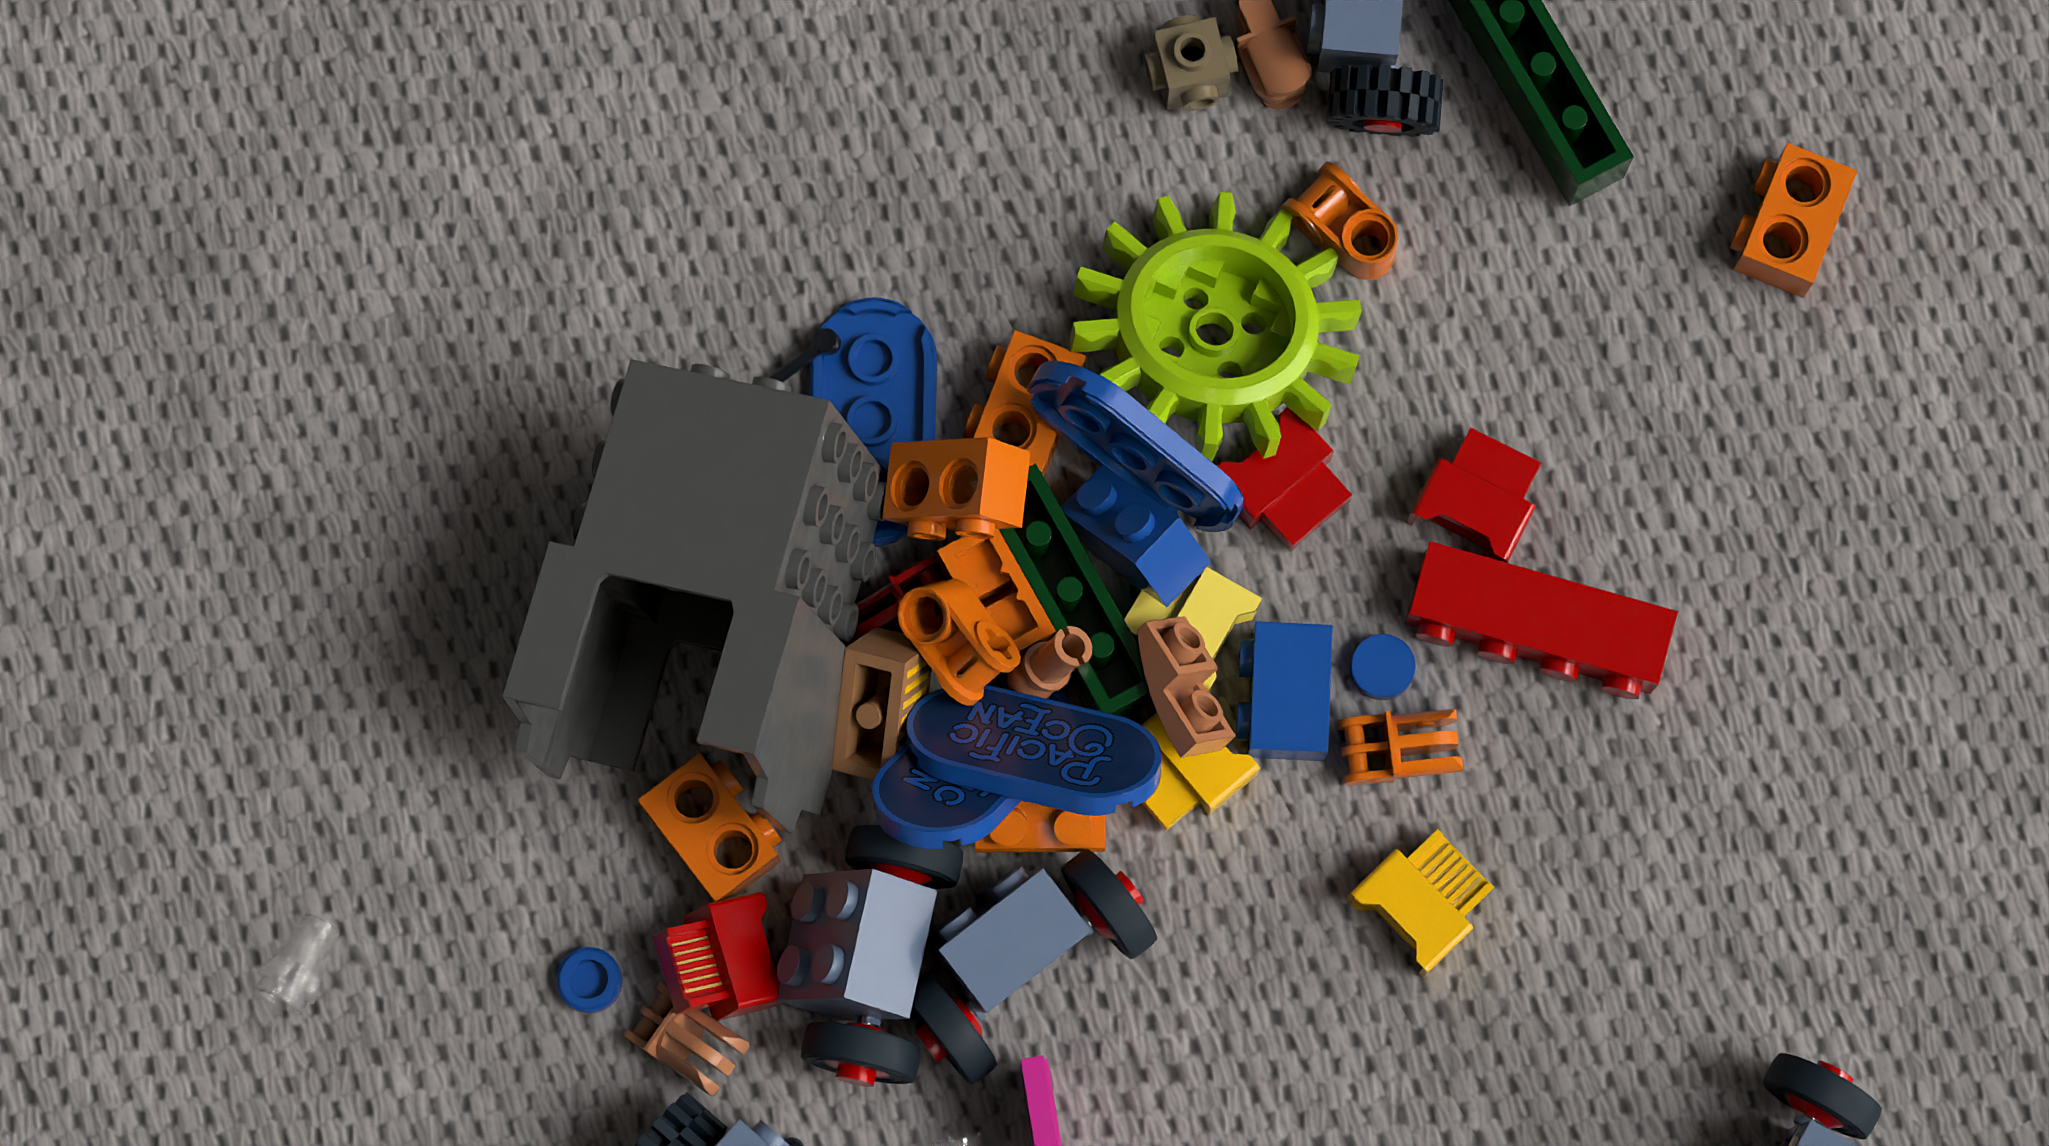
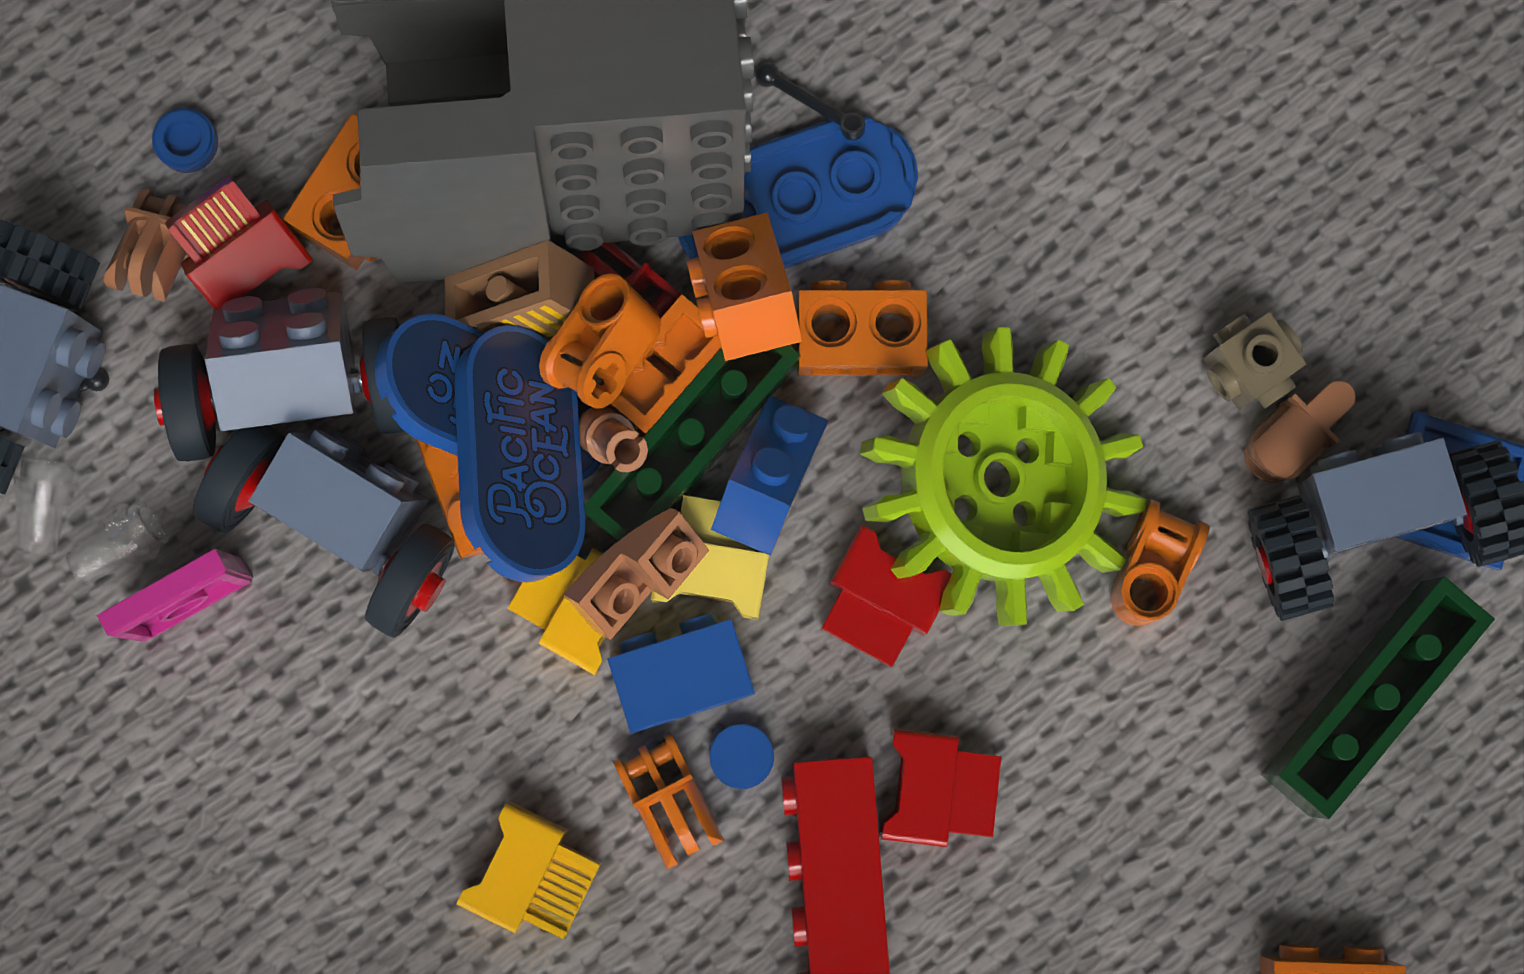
camera: 65 degrees right, 5 degrees up
(1134, 444) = (852, 439): blue tile -> none

